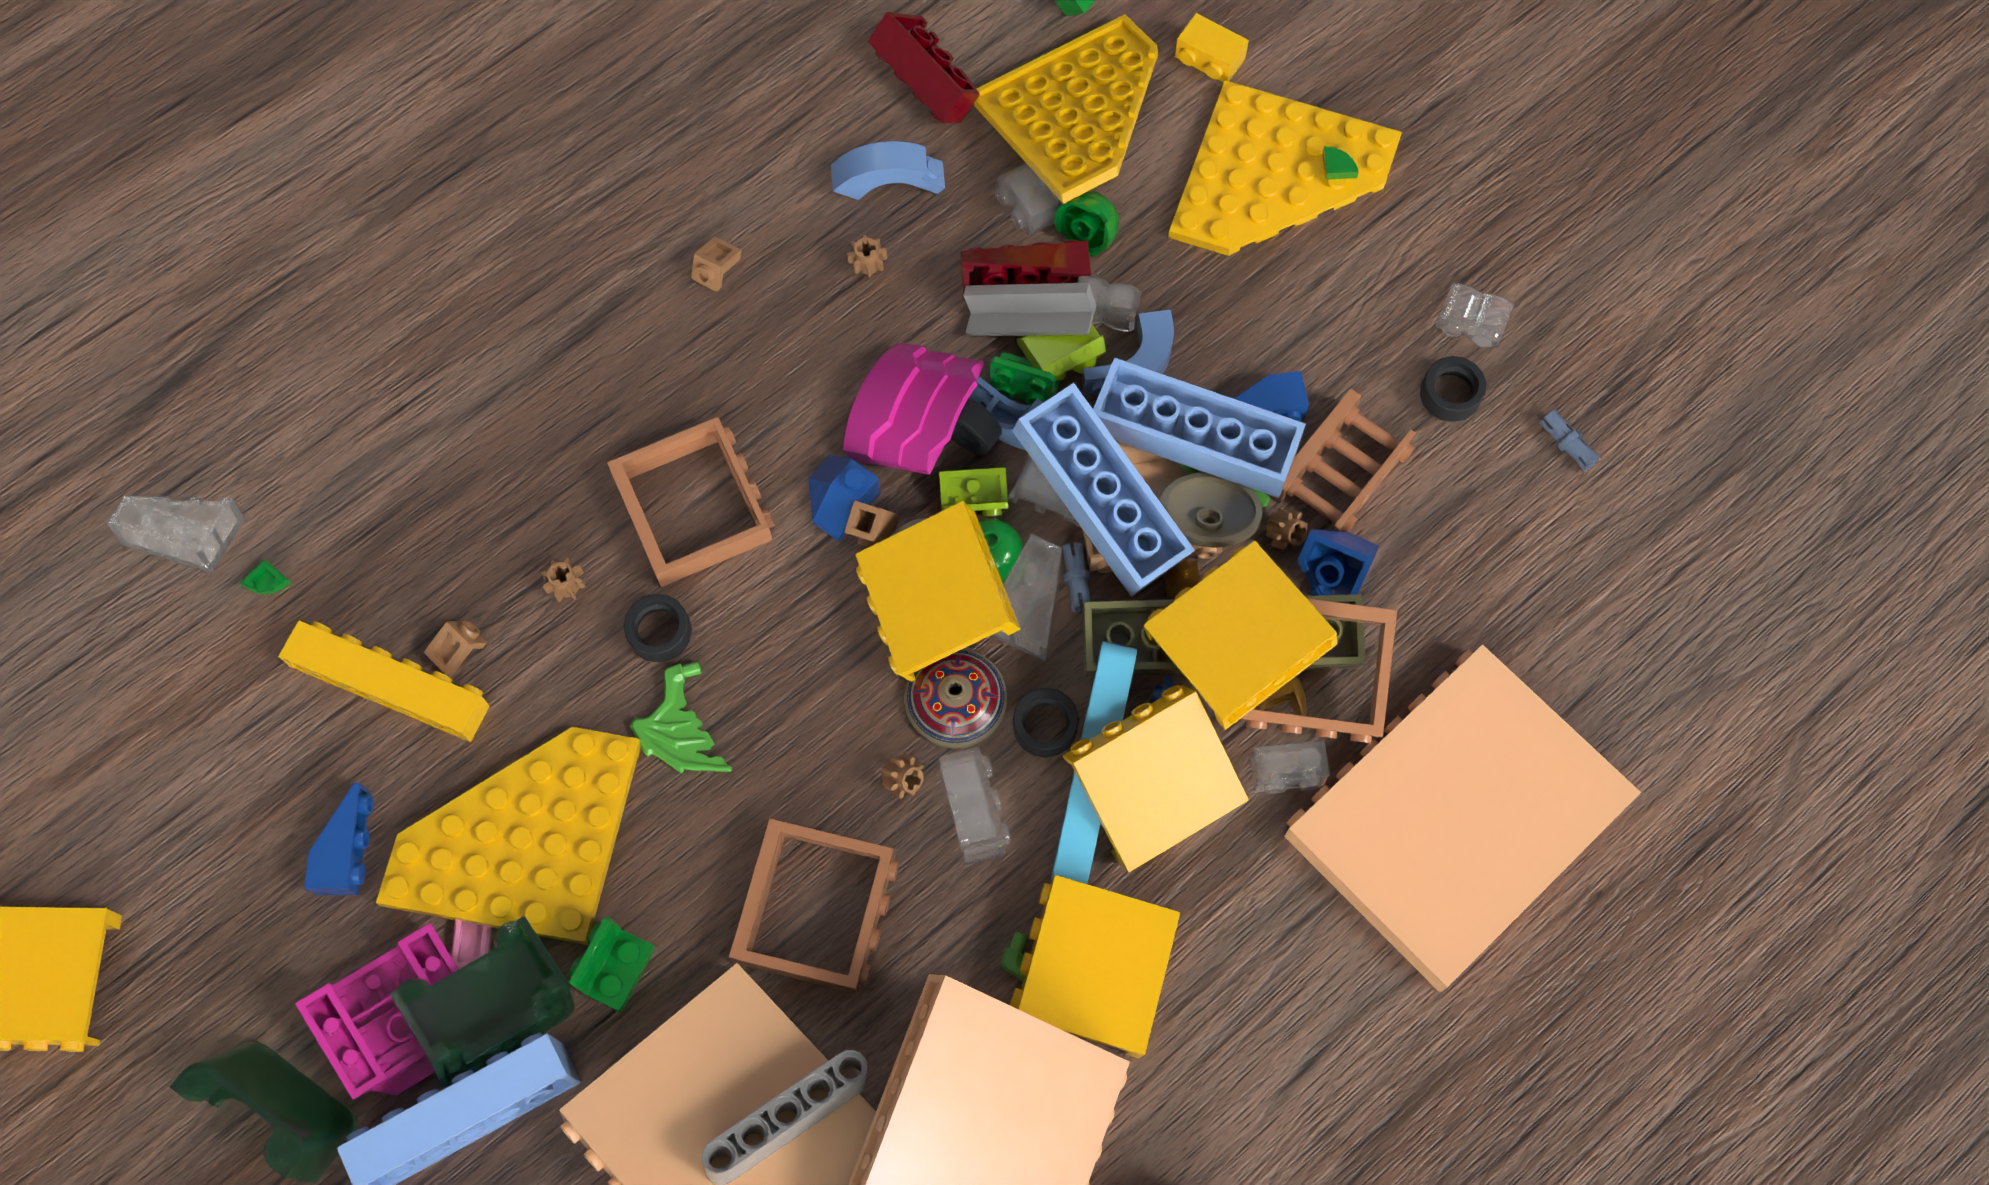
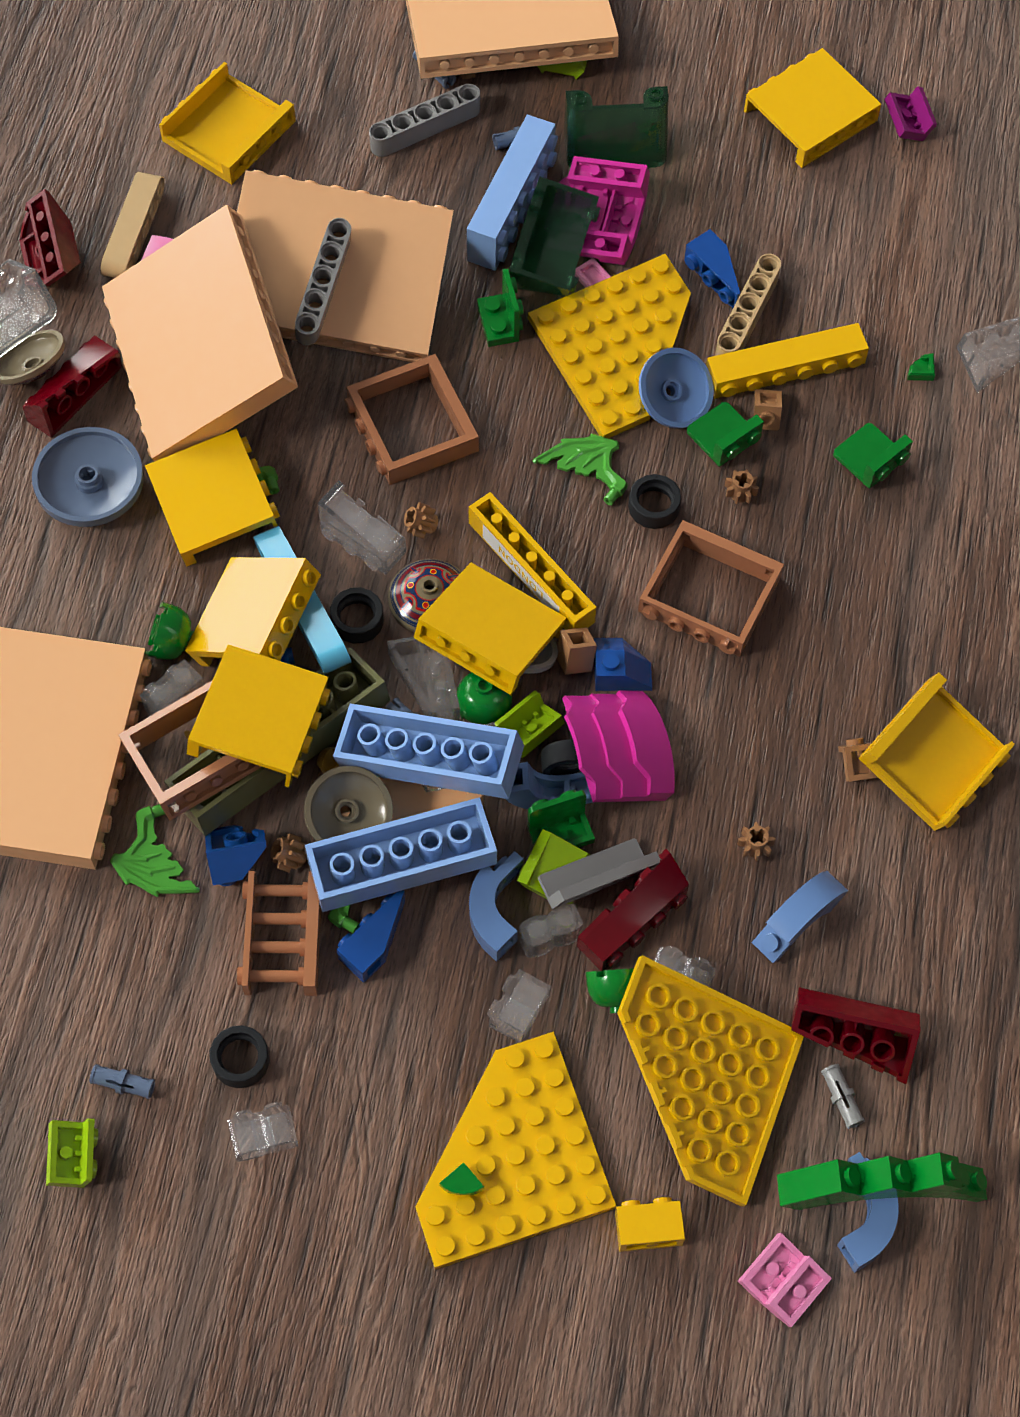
camera: 140 degrees right, 5 degrees down
(344, 767) = (749, 305): none -> tan beam
(410, 518) = (872, 454): none -> green bracket
(522, 646) = (725, 433): none -> green bracket
(524, 724) = (689, 387): none -> medium blue dish
(648, 210) = (935, 755): none -> yellow panel
(836, 643) = (530, 562): none -> yellow brick
(986, 21) = (833, 1078): none -> light grey pin
(1181, 266) = (519, 1005): none -> clear brick
(1214, 1094) = (87, 476): none -> sand blue dish
(1250, 833) = (170, 633): none -> green cylinder
(1420, 619) = (149, 864): none -> bright green animal
(1652, 407) = (71, 1153): none -> lime bracket

